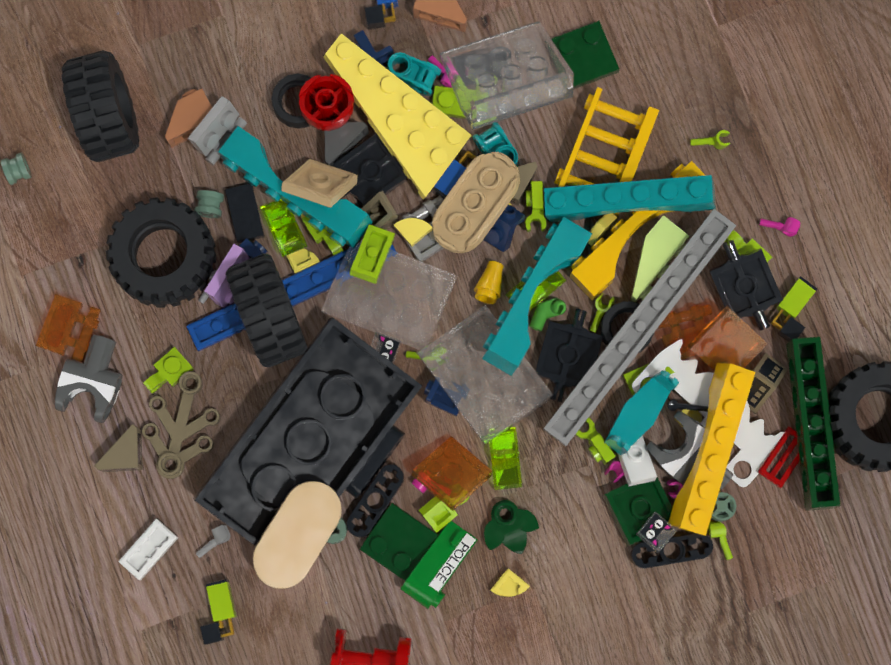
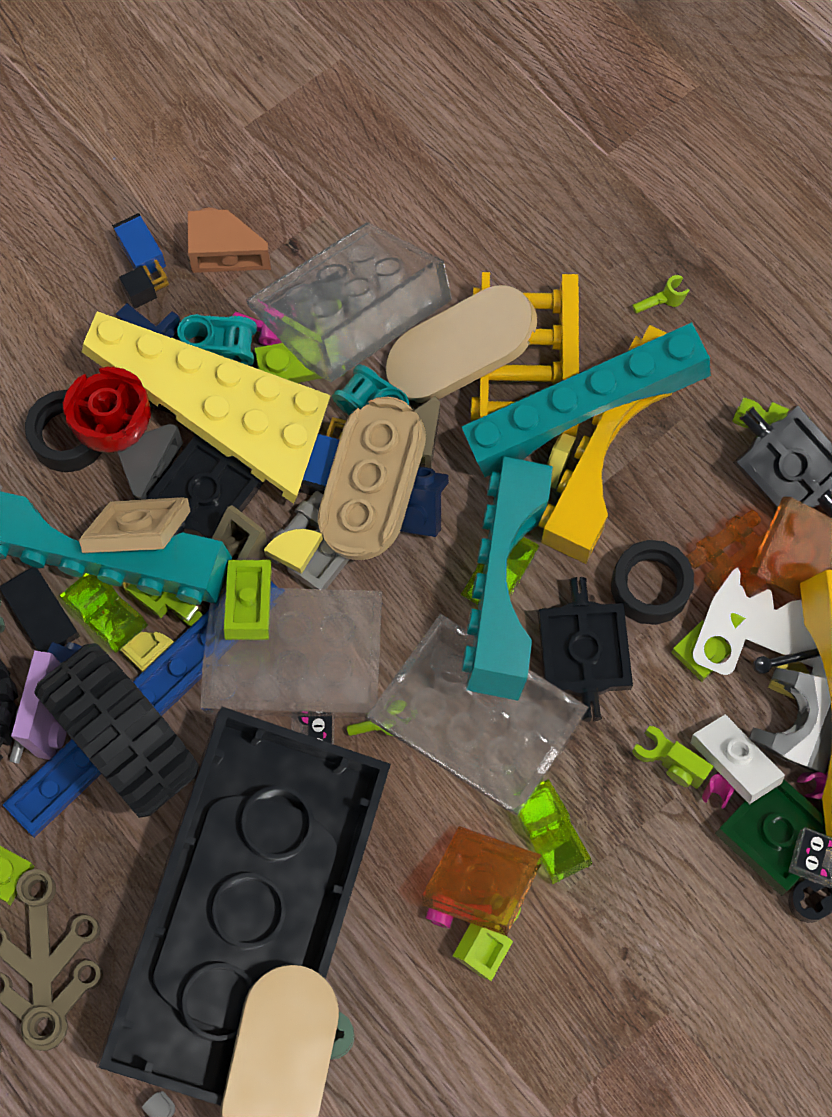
camera: 25 degrees left, 10 degrees down
(375, 462) = (360, 907): black beam -> none
(380, 478) = (378, 930): black beam -> none
(398, 542) = (439, 1018): dark green plate -> none
(438, 398) = (423, 775): dark blue bracket -> none
(438, 565) = (514, 1032): green door -> none
(489, 285) = (432, 588): yellow cone -> none
(509, 585) = (631, 1021): light yellow tile -> none
(510, 531) = (601, 937): dark green plate -> none
(534, 199) = (453, 450): lime plate -> none
(546, 310) = (529, 596): bright green arm -> none
(565, 132) = (462, 343): none -> tan tile
(587, 54) = (454, 237): dark green plate -> none
(601, 309) = (604, 574): lime hand -> none
(639, 327) = (671, 578): light grey plate -> none
(640, 412) = (723, 688): teal piece -> none
(658, 249) = (649, 465): yellowish green slope -> none
(789, 228) = (814, 375): dark pink hand -> none

